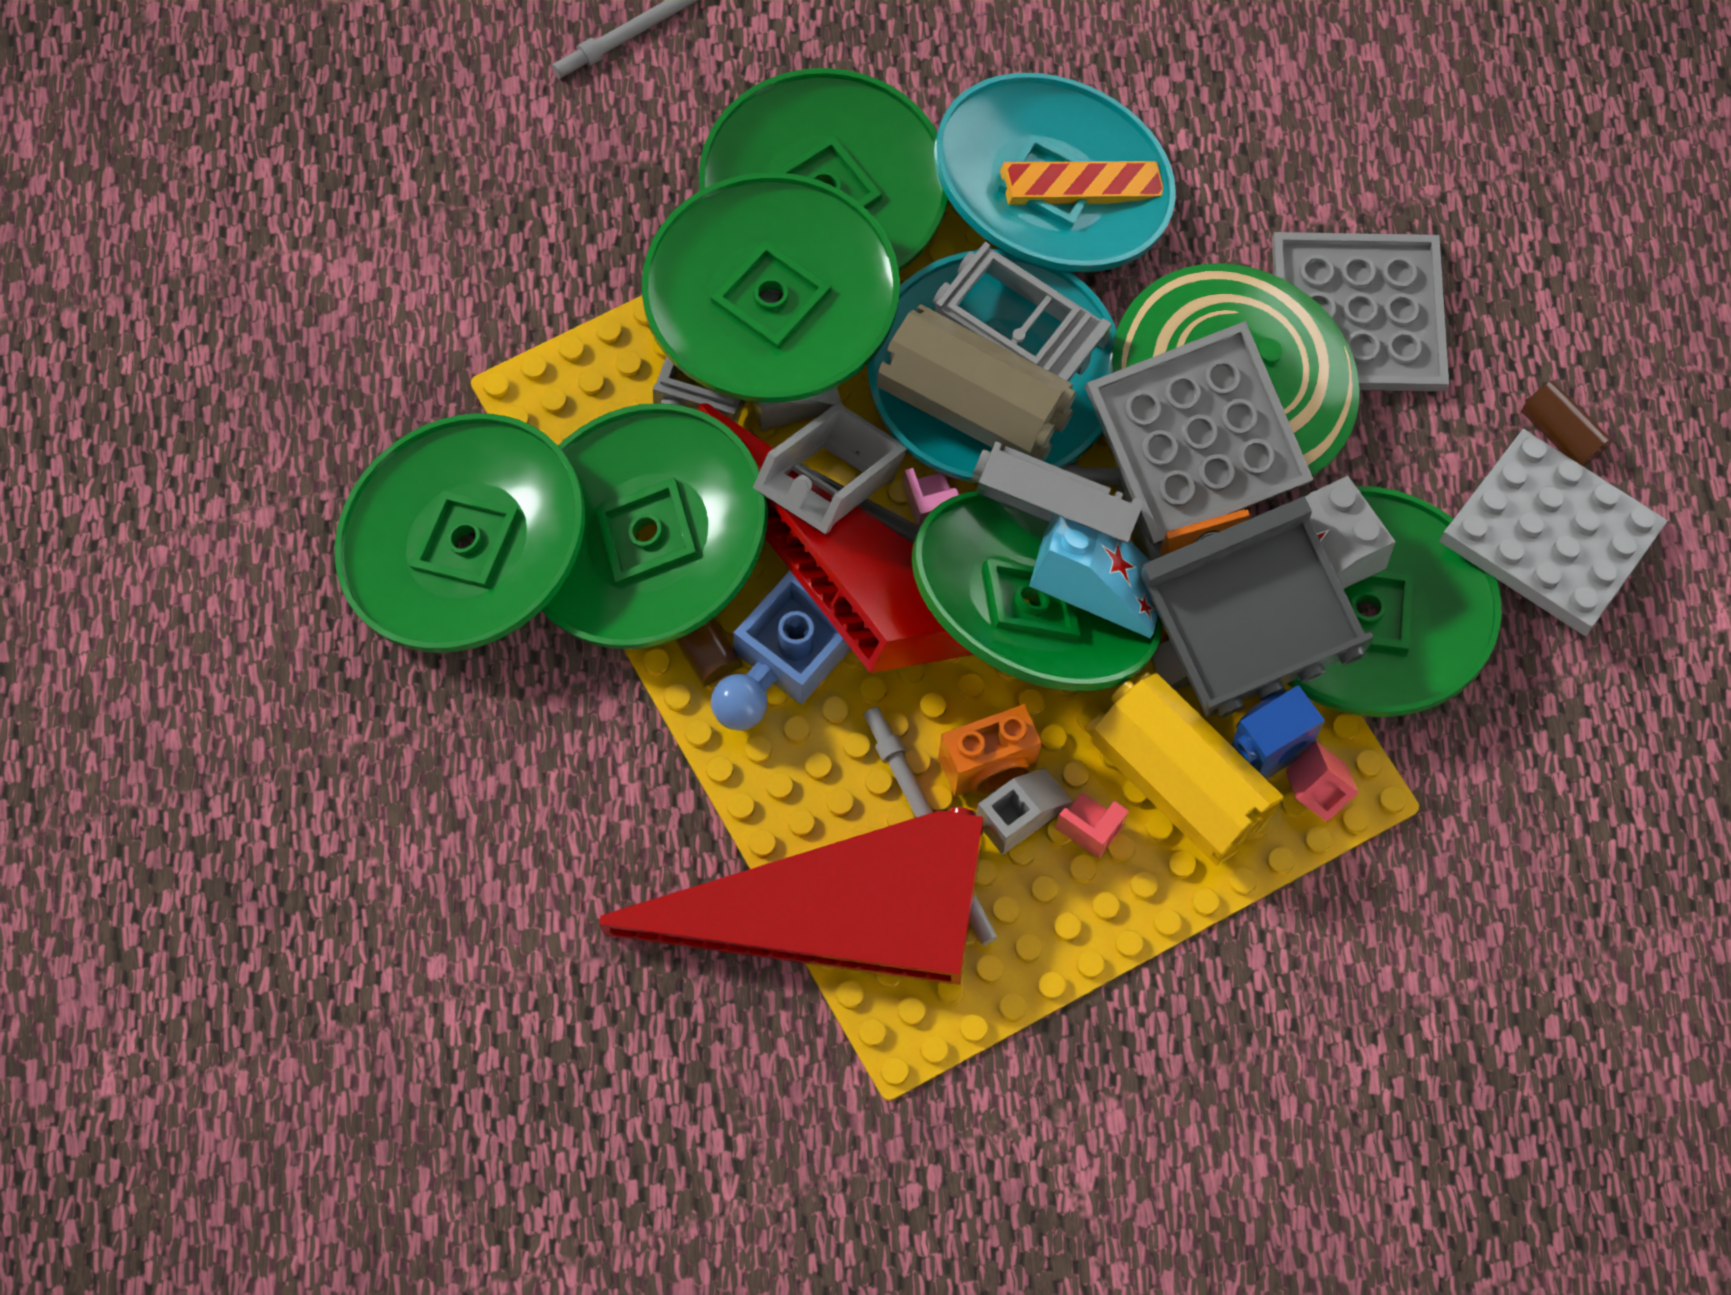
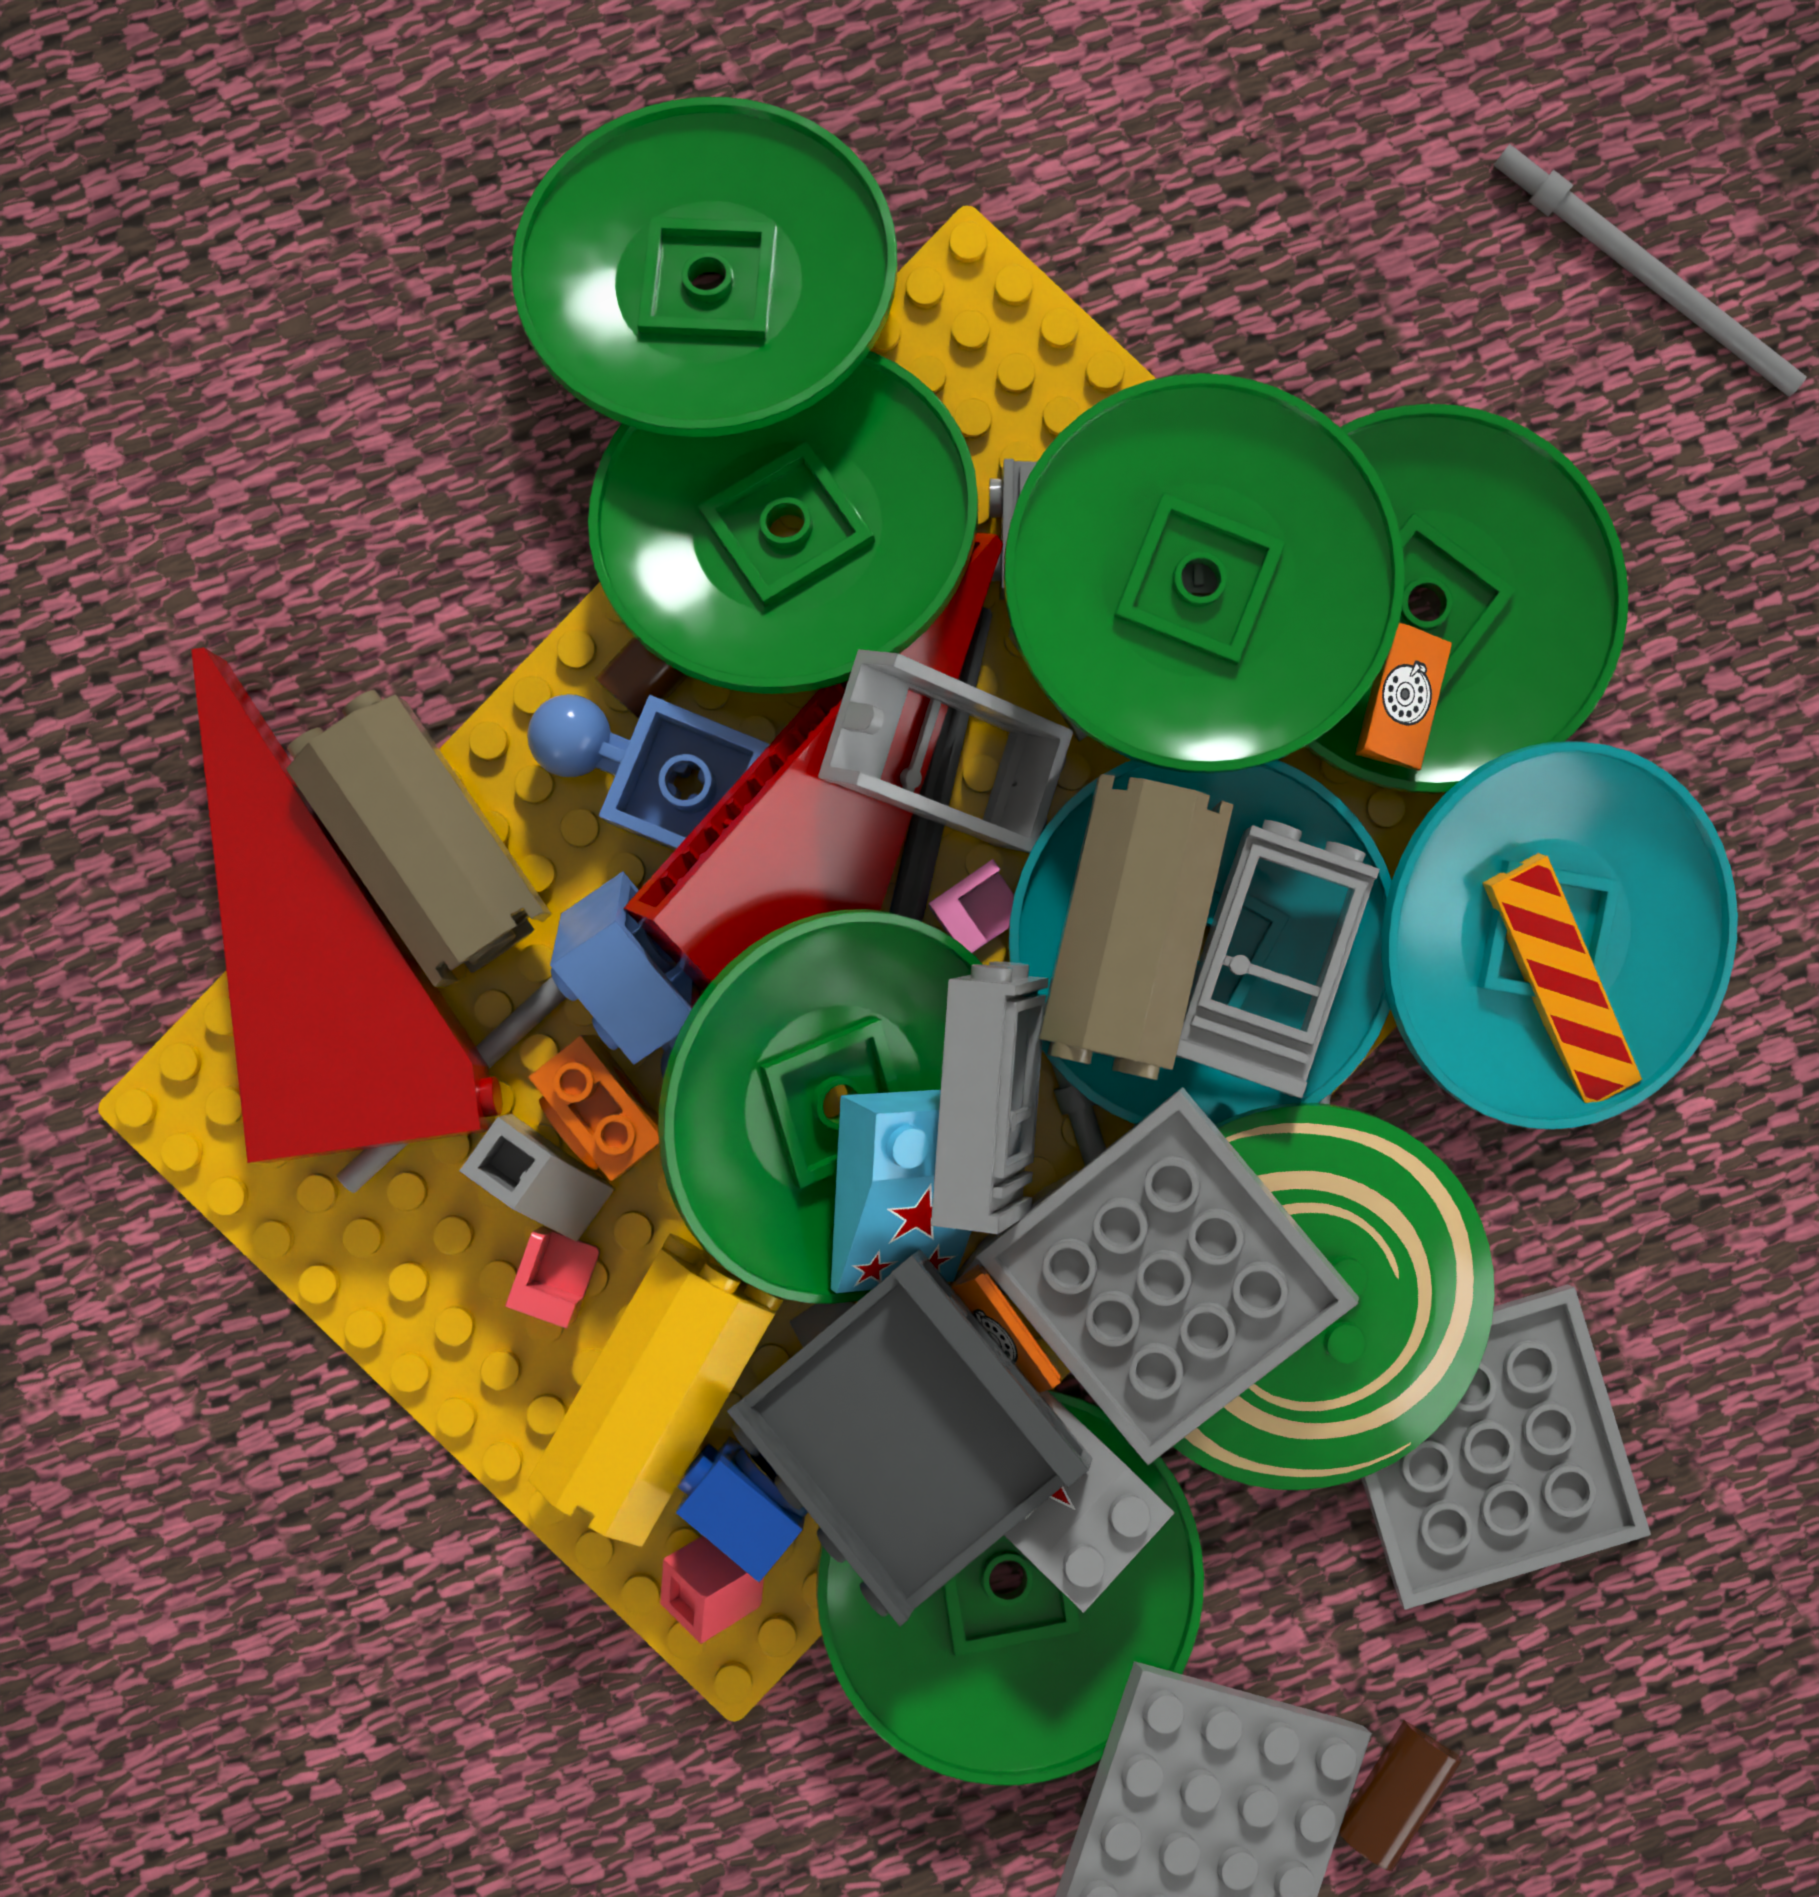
camera: 75 degrees right, 20 degrees up
(777, 809) = (415, 836): none -> dark tan brick
(894, 214) = (1404, 699): none -> orange slope
(921, 695) = (621, 974): none -> medium blue brick

